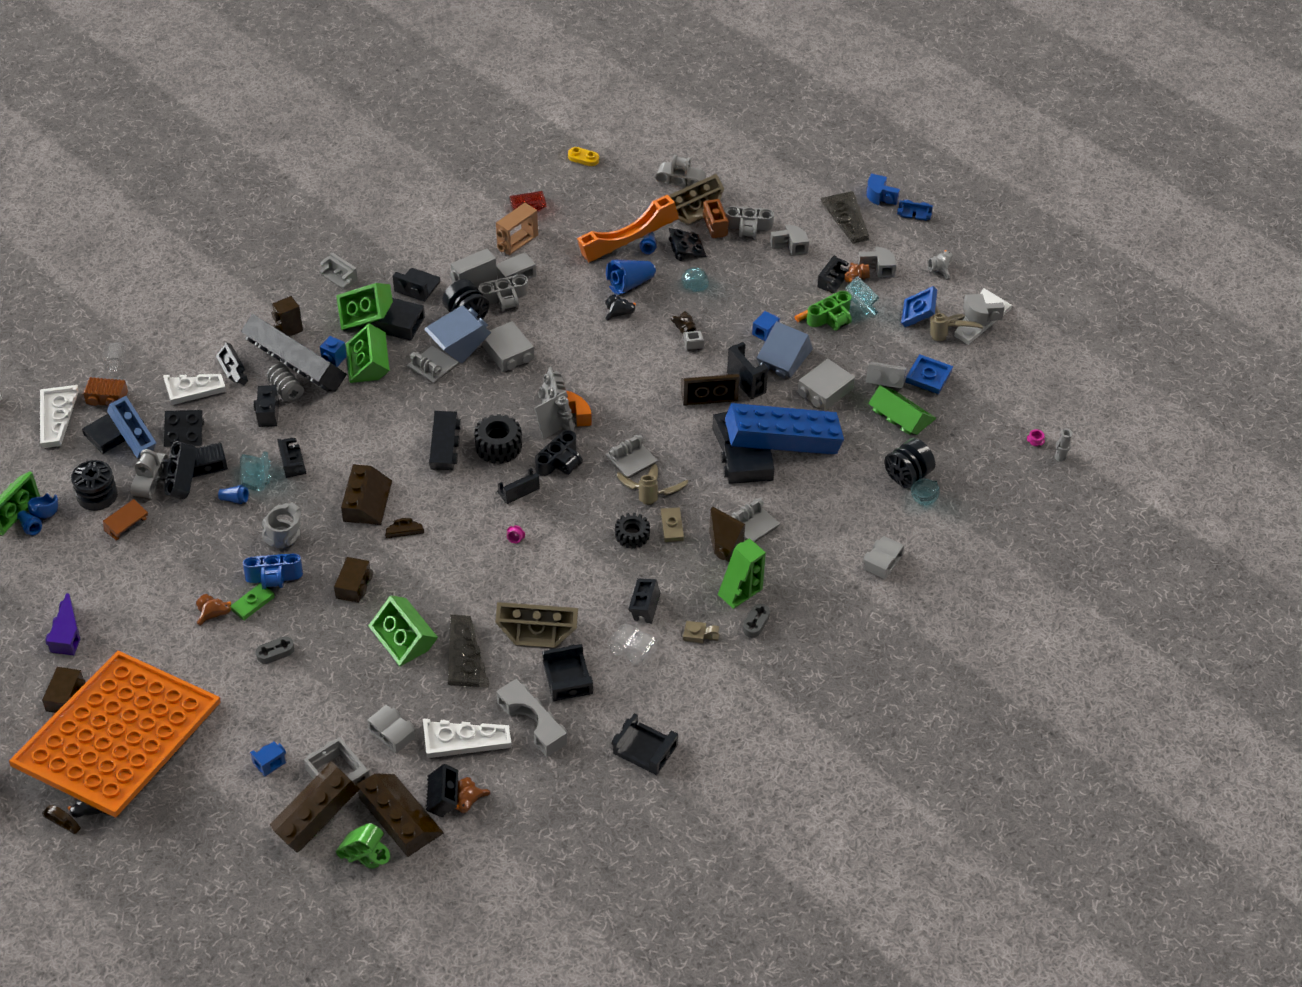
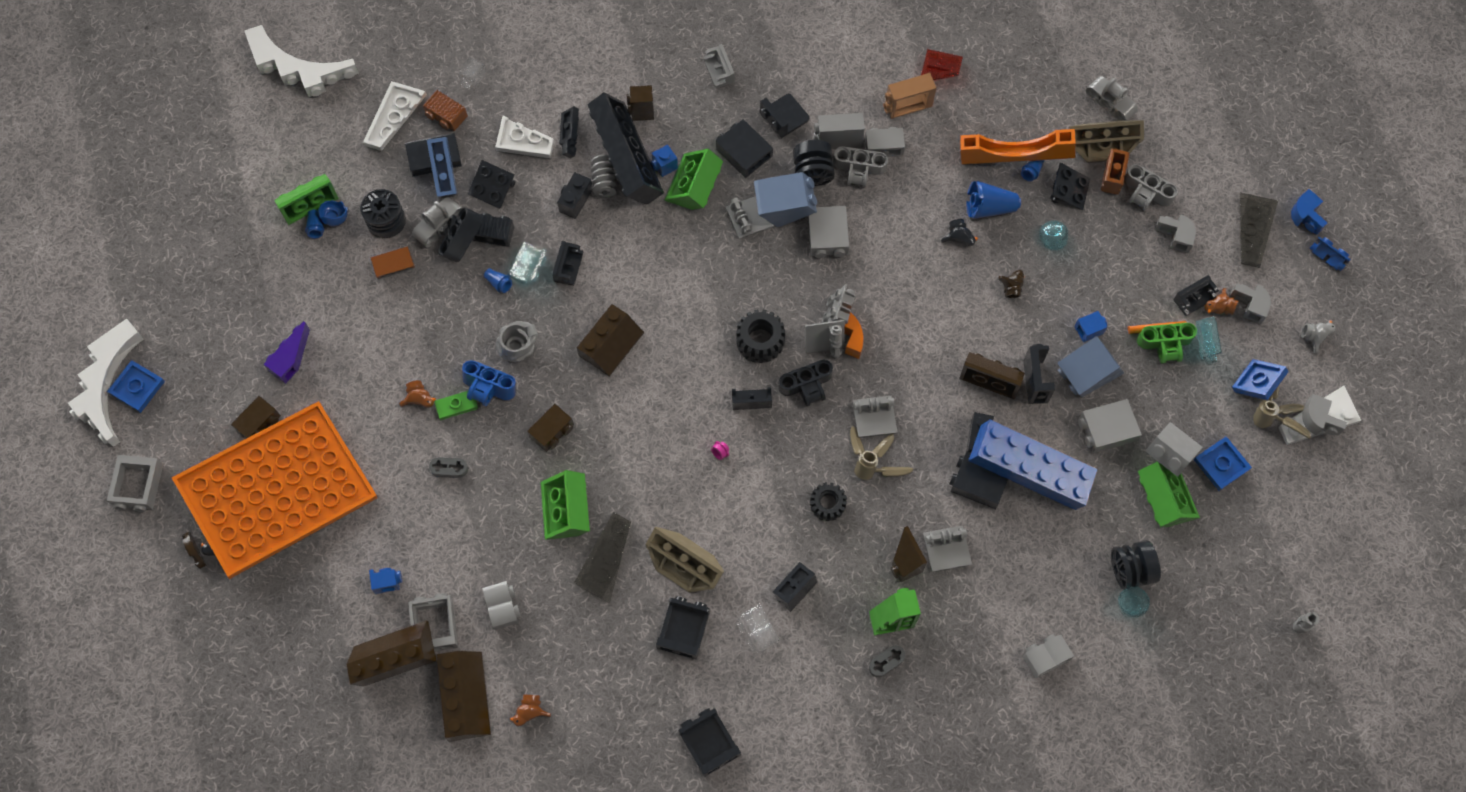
camera: 30 degrees right, 20 degrees up
(364, 305) = (716, 124): bright green slope -> none
(364, 845) = (410, 721): bright green piece -> none
(404, 527) = (626, 390): dark brown tile -> none
(442, 790) = (507, 696): black brick -> none
(444, 440) = (709, 315): black wedge -> none
(452, 739) = (552, 645): white wing -> none
(516, 699) = (630, 685): light grey arch -> none
(583, 156) = (1027, 29): yellow plate -> none
(672, 524) = (869, 512): dark tan plate -> none
(693, 340) = (1010, 308): light grey brick -> none
(698, 632) = (826, 644): dark tan plate -> none
(1036, 437) = (1291, 592): dark pink plate -> none

